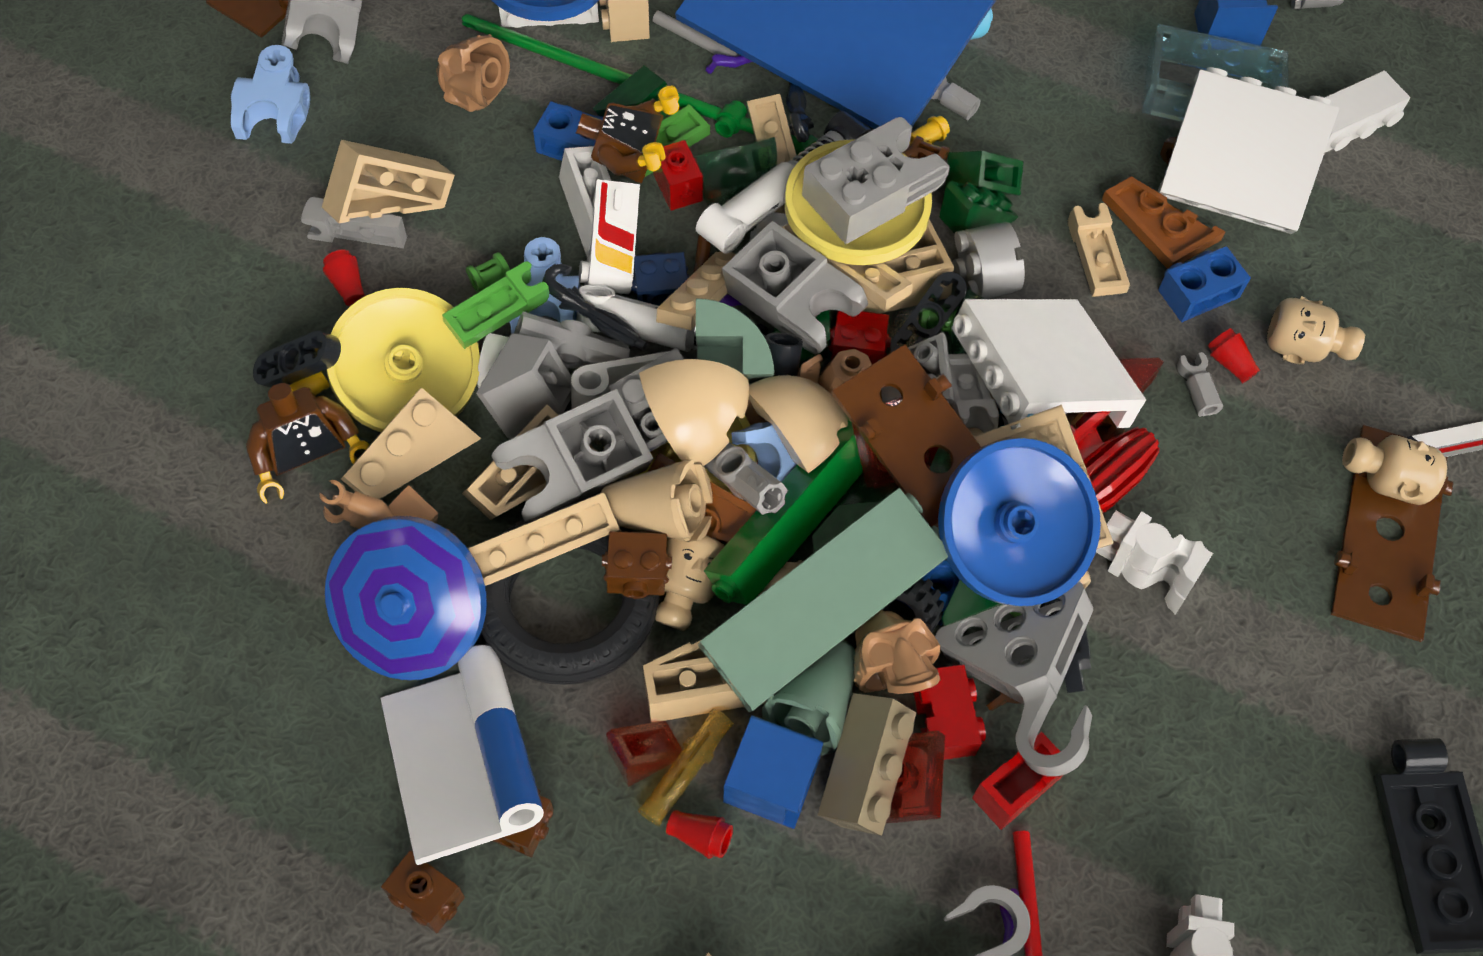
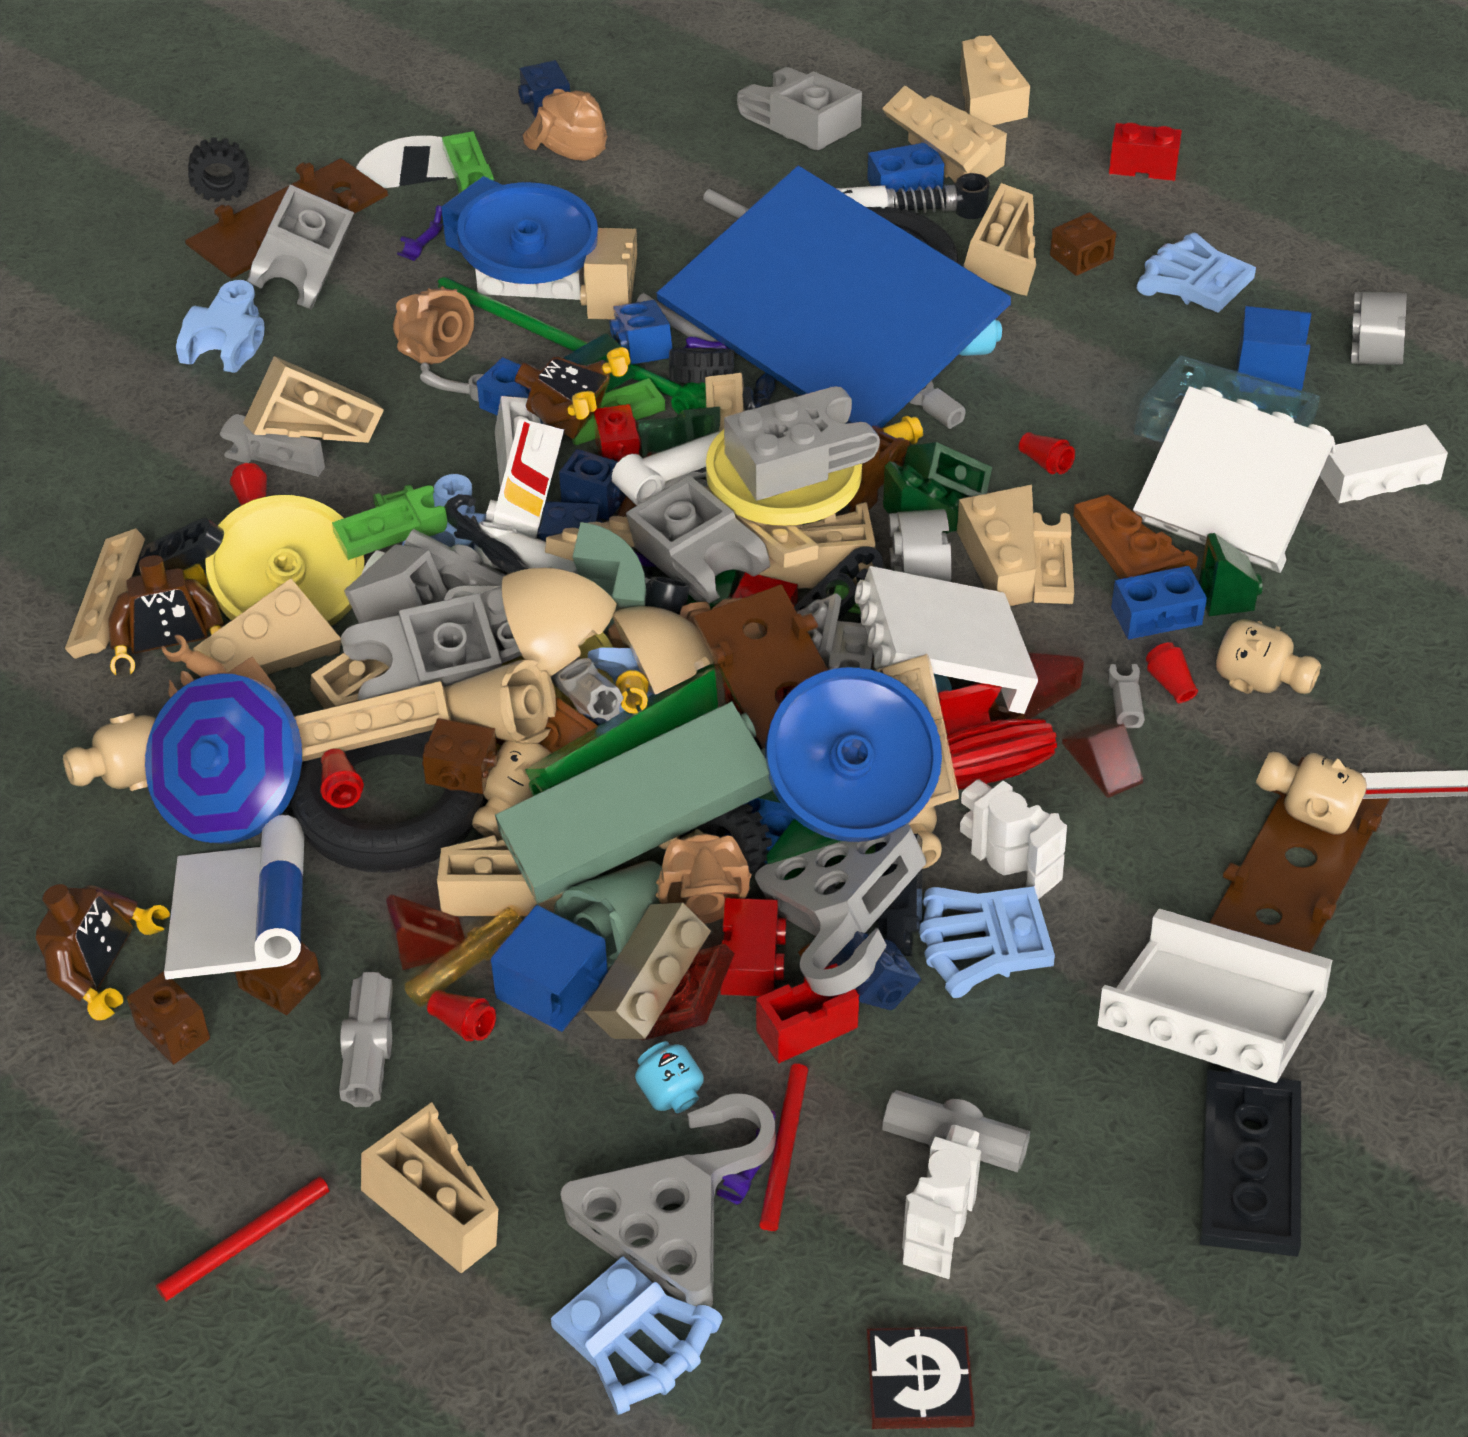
camera: 15 degrees right, 15 degrees down
(232, 413) = (108, 581): none -> tan plate
(294, 599) = (115, 754): none -> tan piece
(317, 821) = (84, 938): none -> torso
(525, 132) = (449, 385): none -> light grey piece
(527, 607) = (339, 781): none -> red cone
(618, 878) = (366, 1040): none -> light grey piece
(669, 228) = (589, 480): none -> dark blue head
(671, 54) = (642, 331): none -> blue brick
(735, 85) = (697, 363): none -> black tyre
(784, 466) = (638, 689): none -> yellow pin
(912, 870) = (669, 1077): none -> medium azure head
(1055, 241) = (1000, 540): none -> tan wedge
(1063, 717) = (891, 978): none -> dark blue head
(1065, 137) = (1050, 453): none -> red cone
(1171, 650) = (1013, 939): none -> light blue plate
(1180, 876) = (924, 1119): none -> light grey piece
(1199, 450) = (1106, 757): none -> clear red slope
(1261, 252) = (1228, 578): none -> dark green slope
(1377, 704) = (1218, 995): none -> white panel

